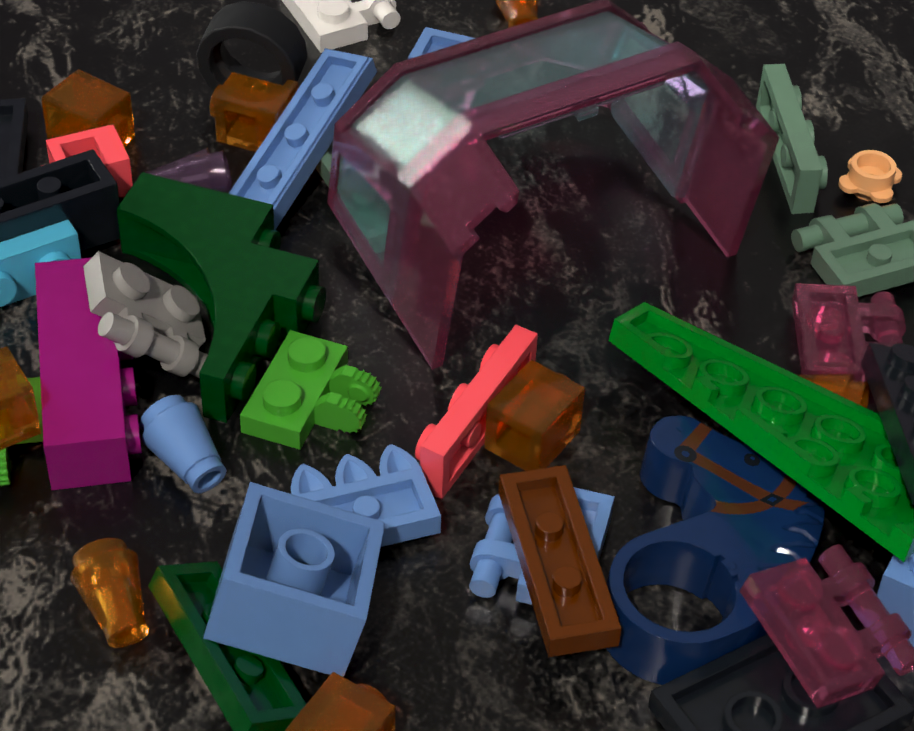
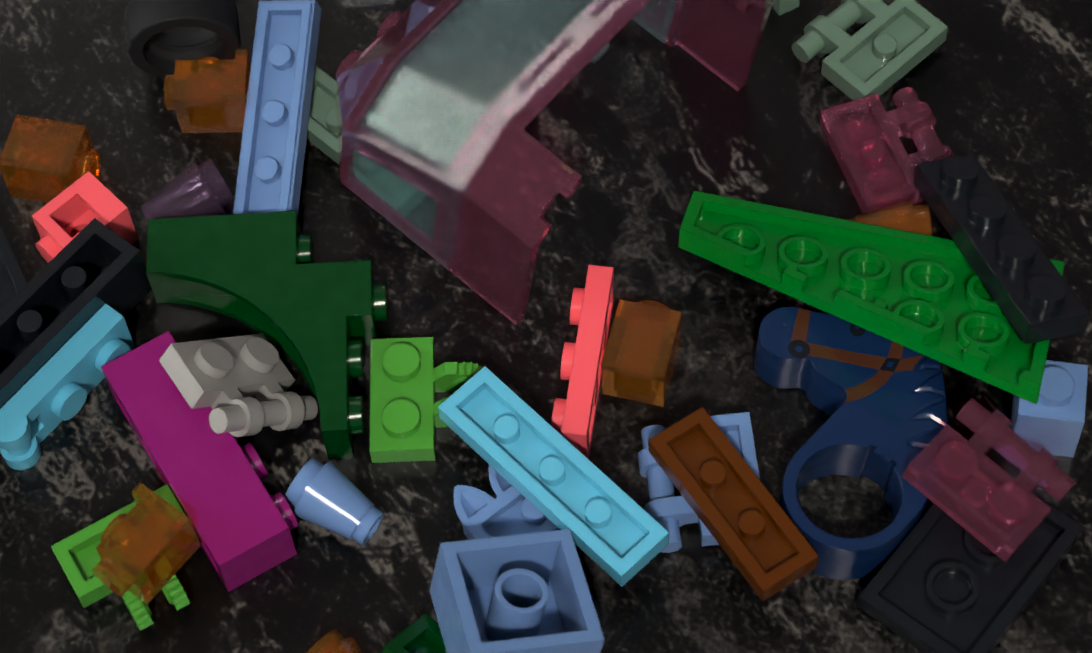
camera: 15 degrees left, 15 degrees up
(397, 482) = (554, 476): none -> medium azure plate

